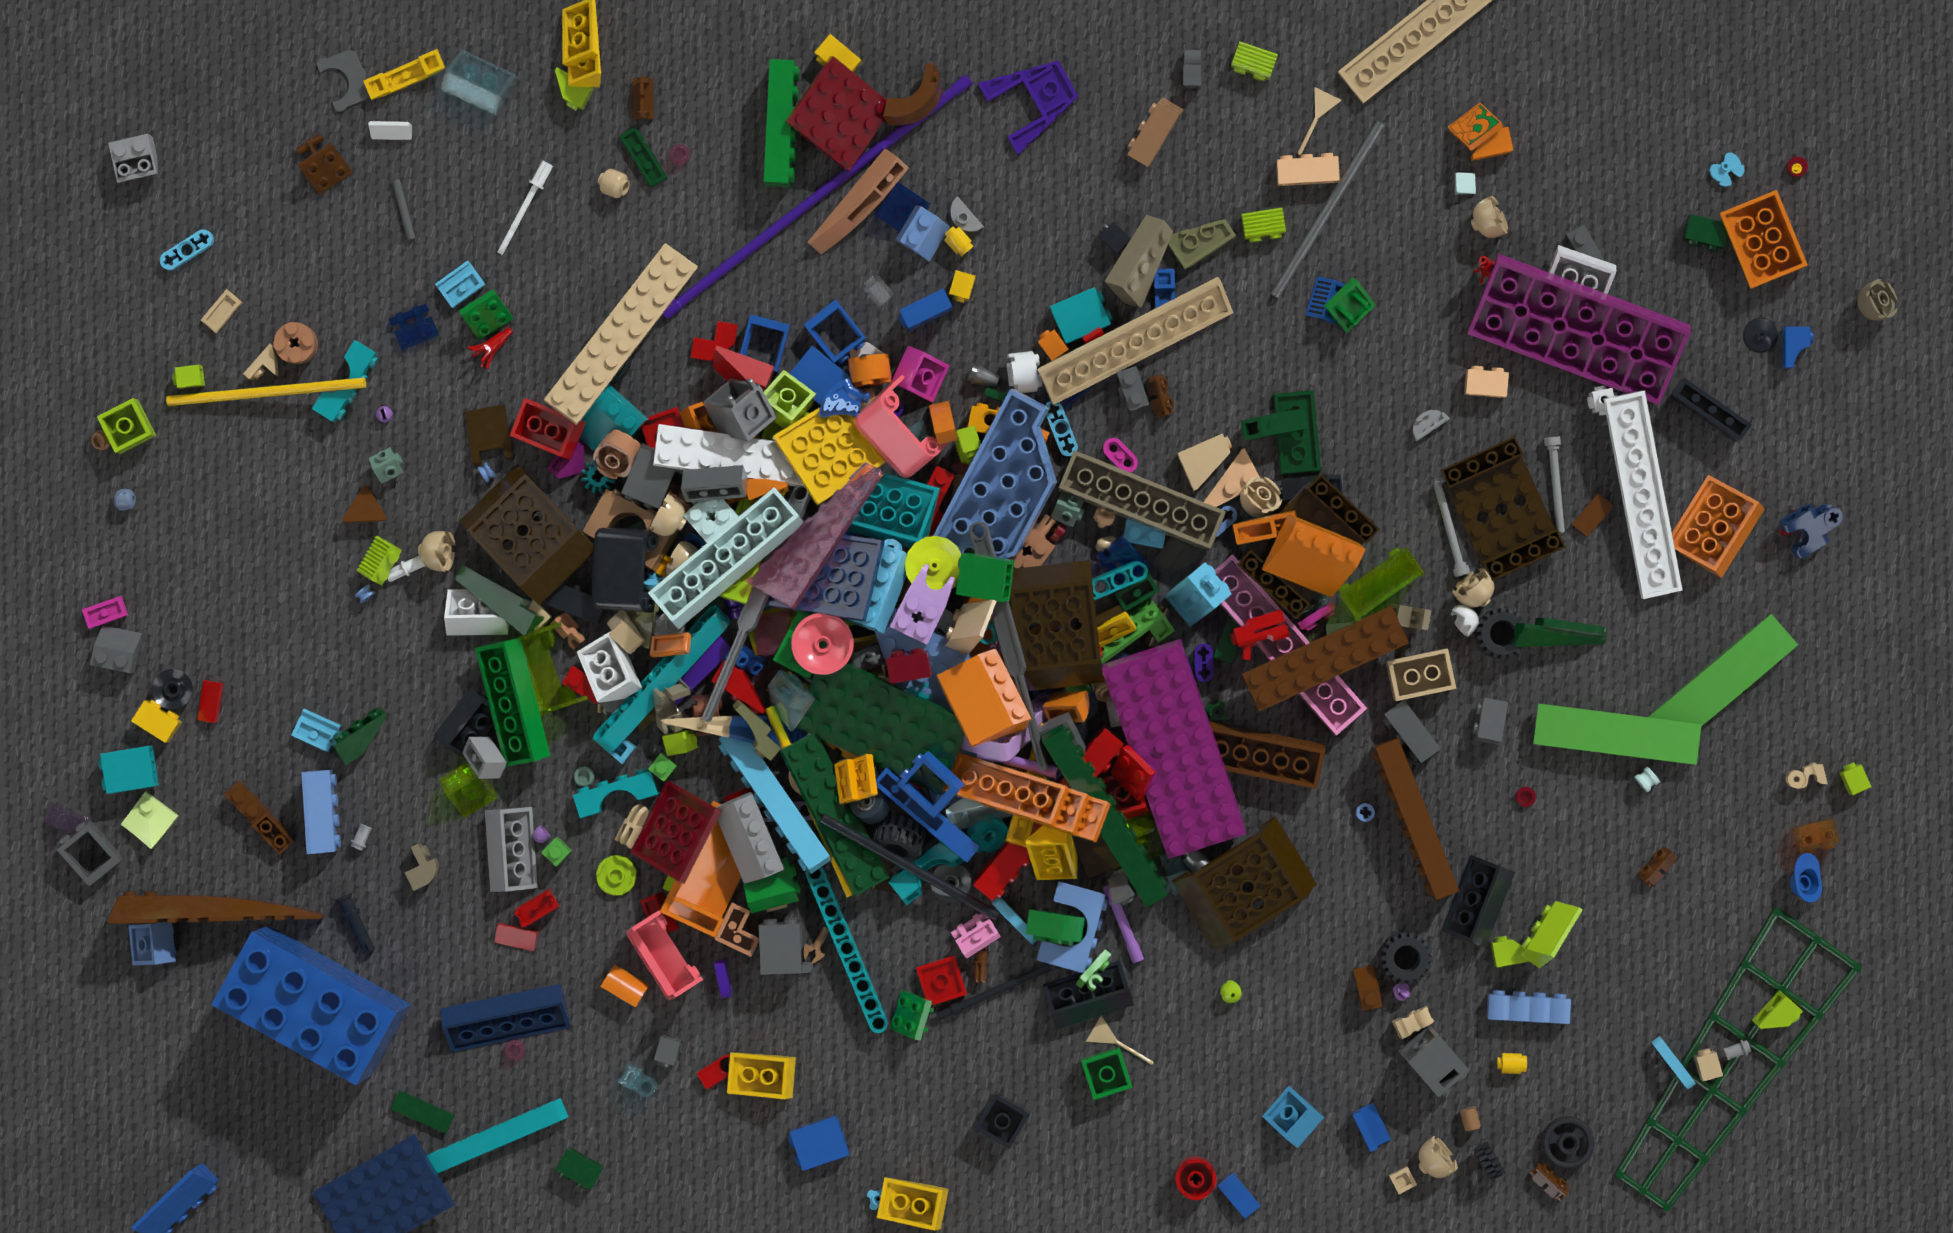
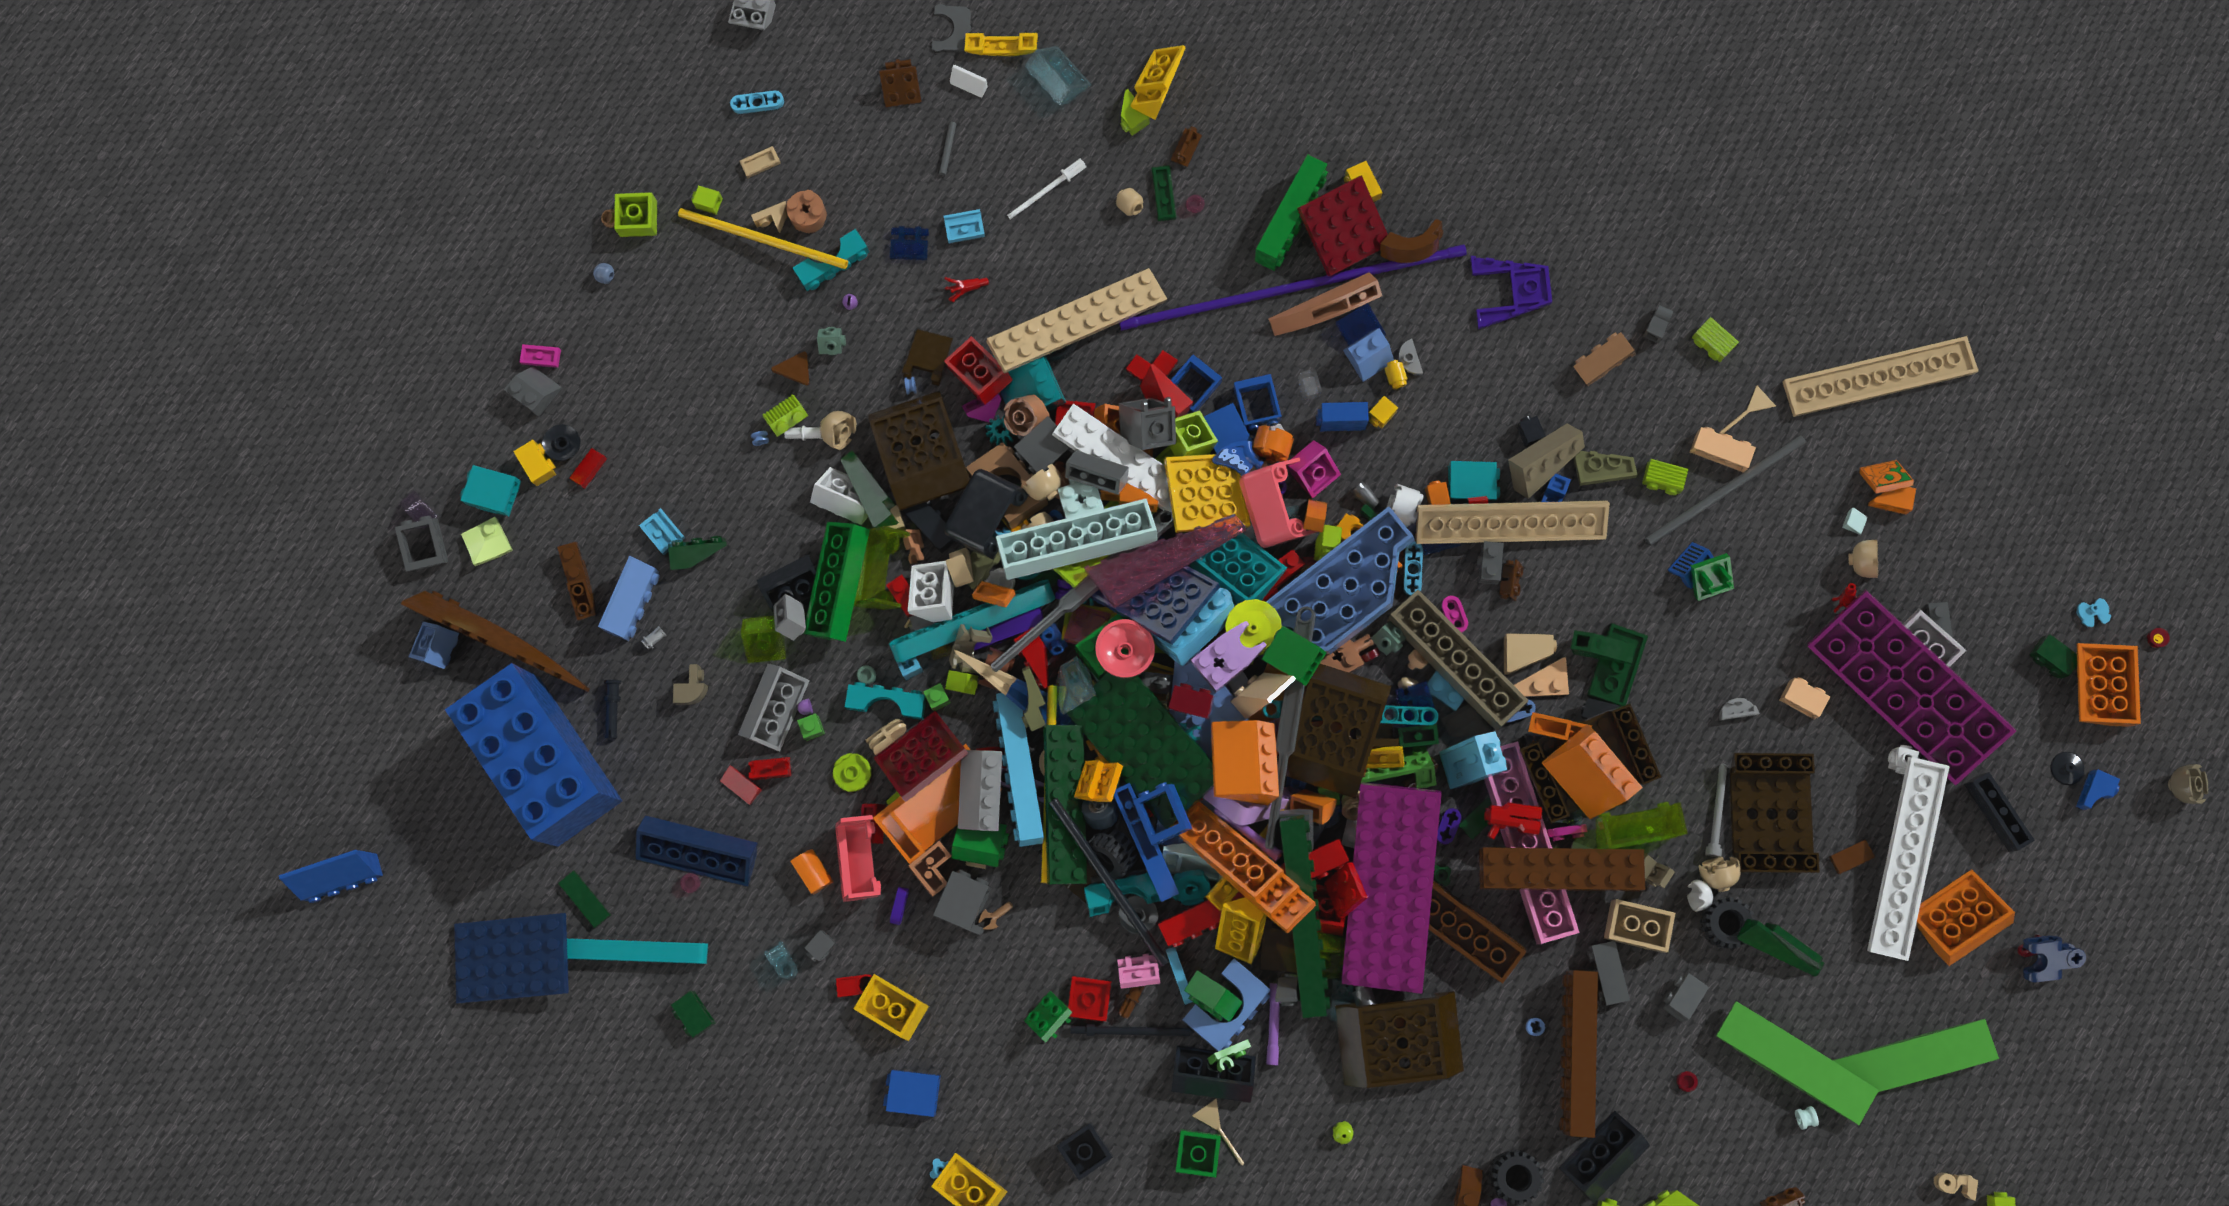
camera: 30 degrees right, 10 degrees down
(486, 314) = (973, 257): green plate -> none
(847, 958) = (1022, 939): teal beam -> none
(1260, 497) = (1562, 703): tan cylinder -> none
(1552, 445) = (1841, 779): light grey piece -> none

